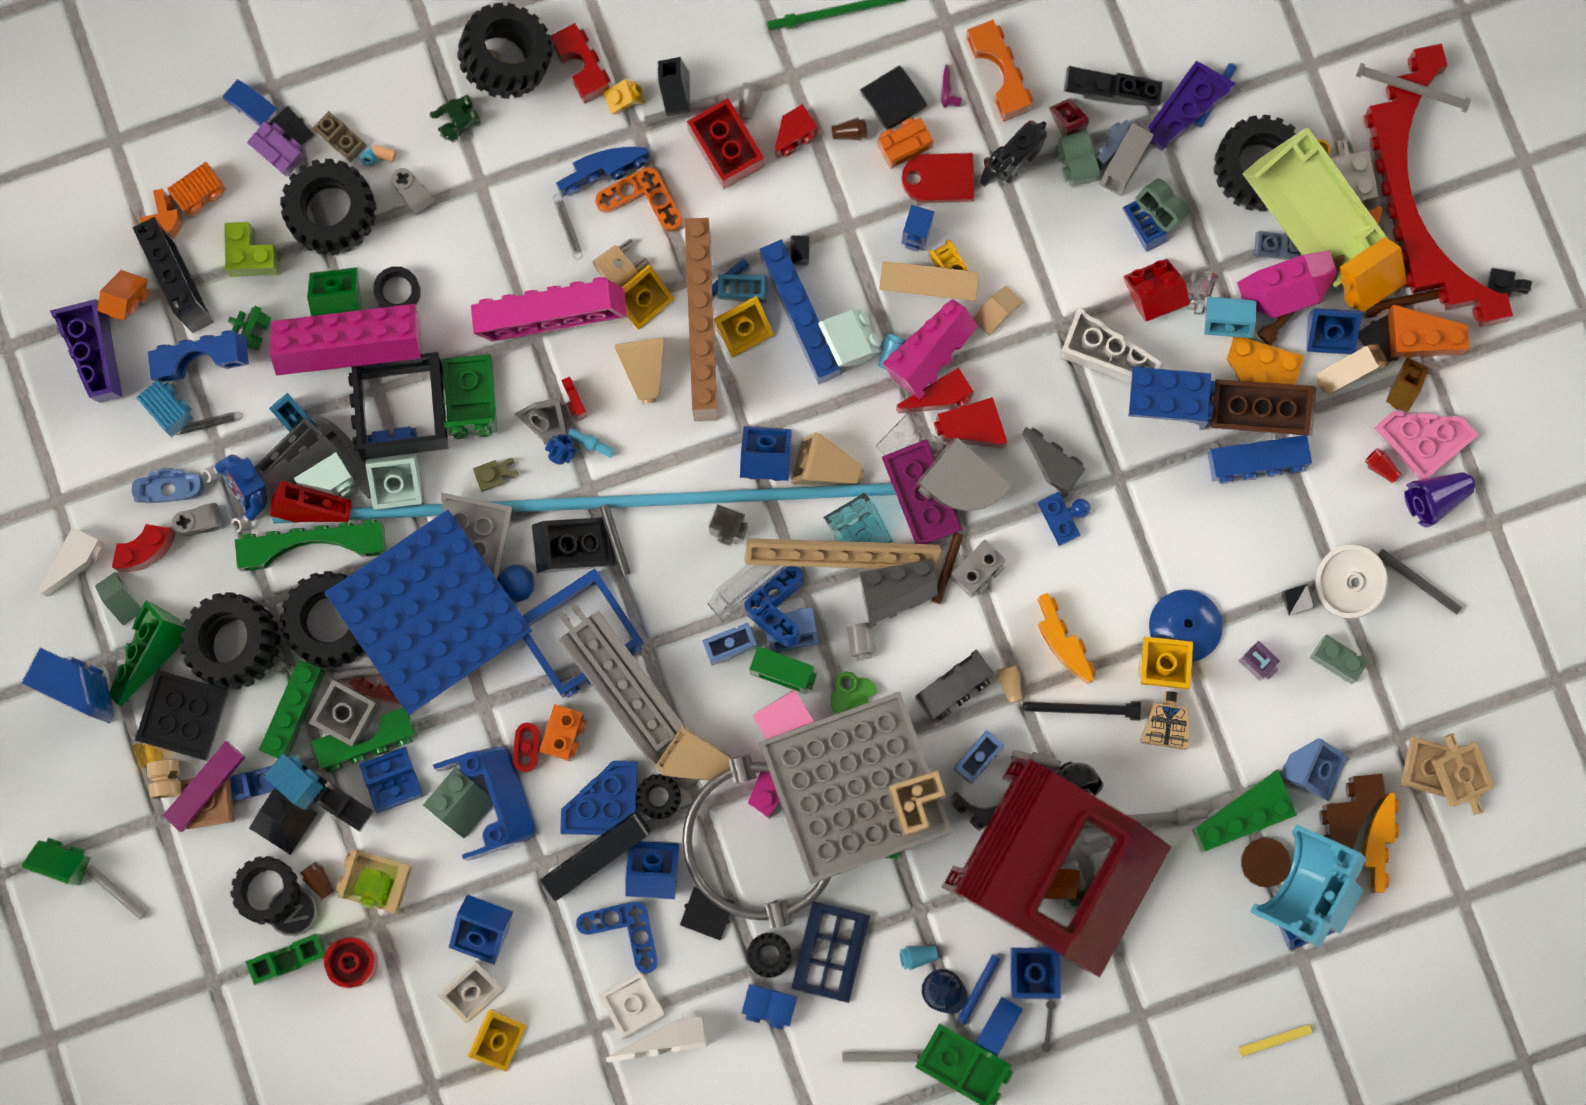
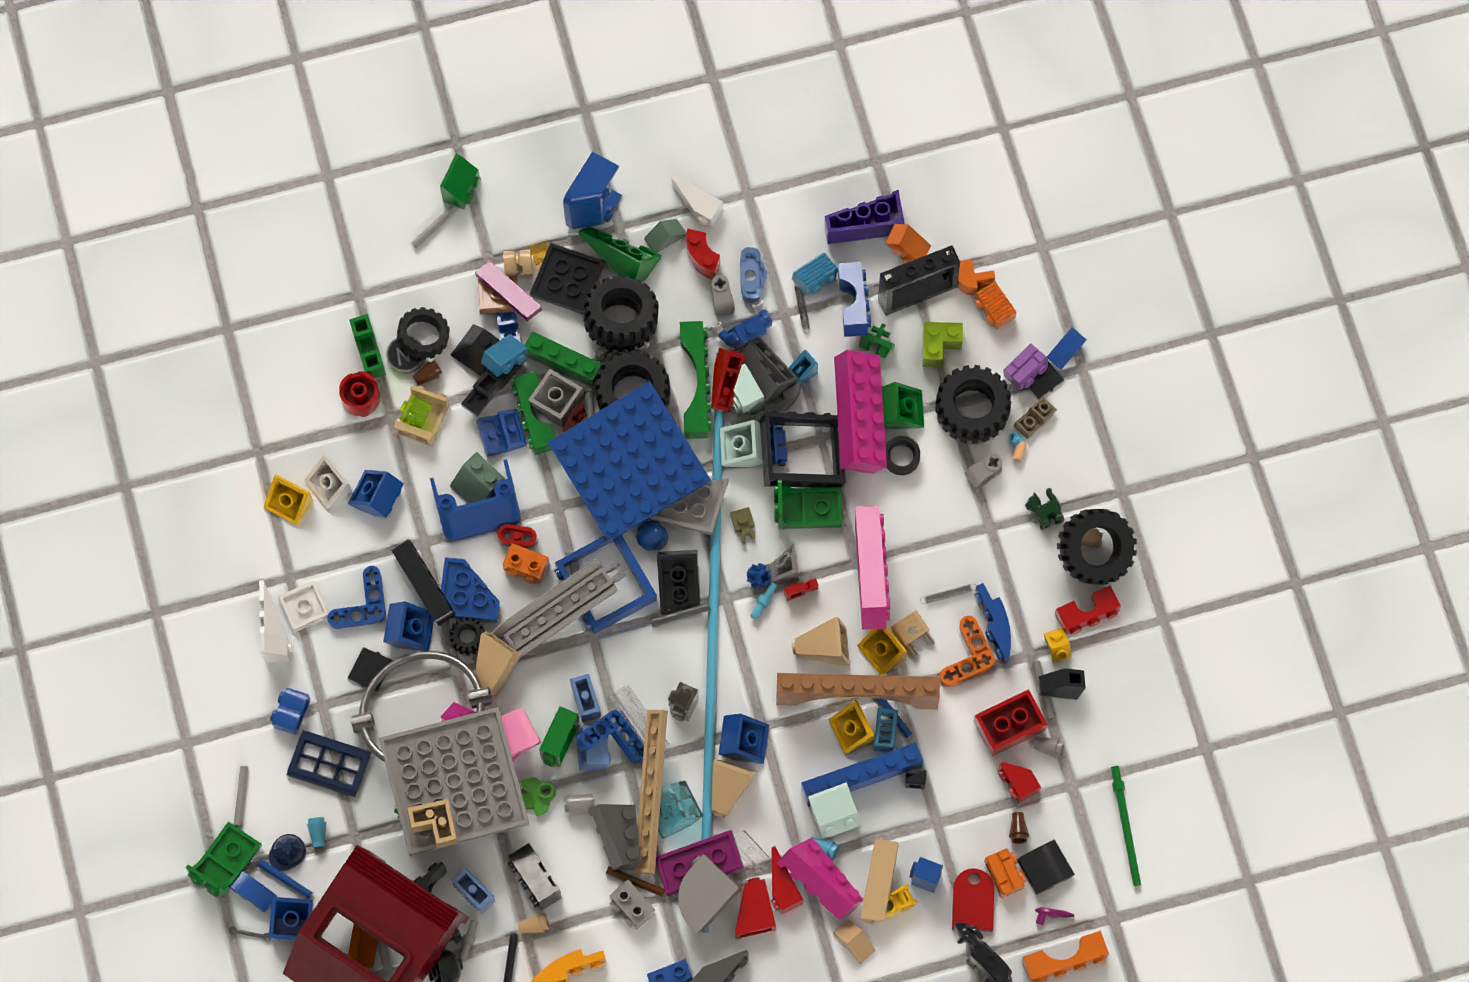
camera: 95 degrees right, 10 degrees down
(756, 964) = (337, 724): black tyre -> none

